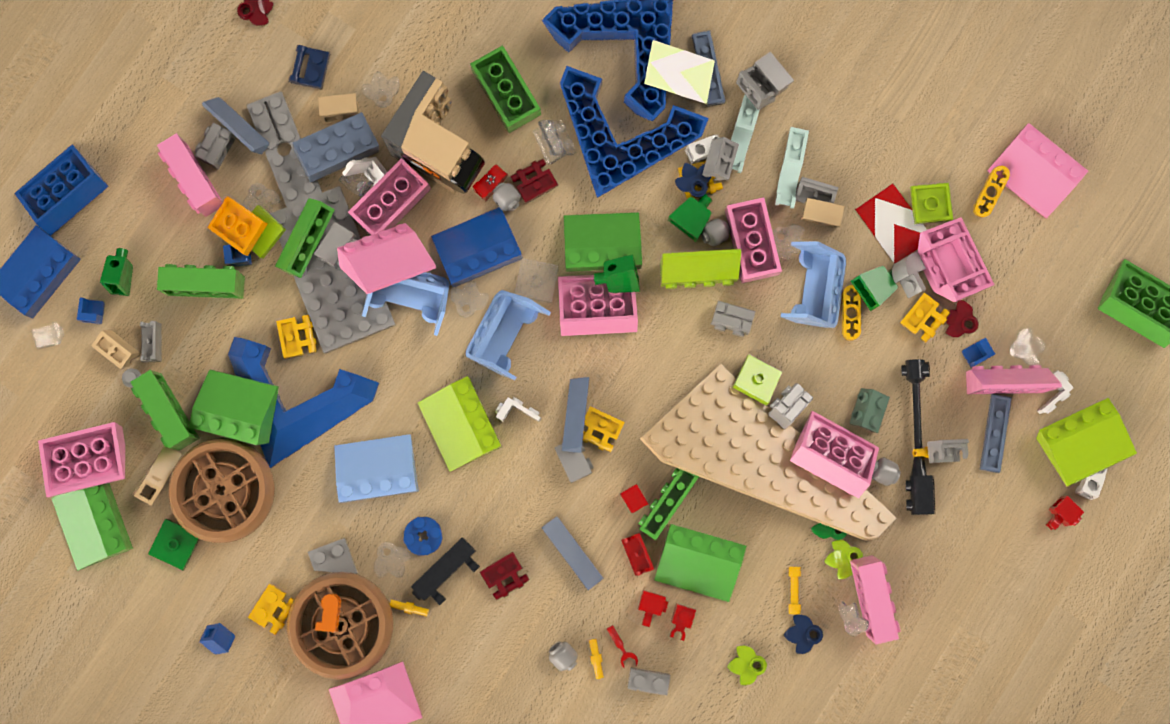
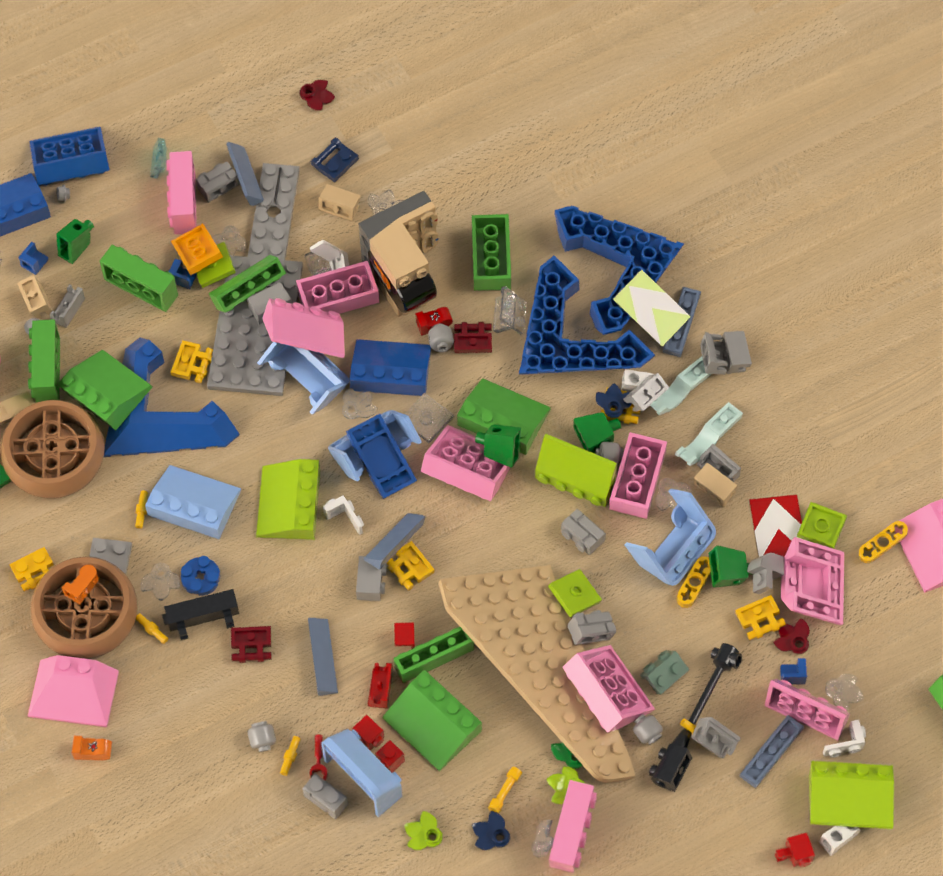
camera: 30 degrees right, 20 degrees down
(78, 231) = (63, 193): none -> light grey plate
(147, 150) = (158, 158): none -> clear light blue wing
(333, 501) = (141, 509): none -> yellow bar
(335, 147) = (307, 225): sand blue brick -> none
(519, 341) = (381, 456): none -> blue slope
(669, 645) = (363, 768): none -> light blue windscreen

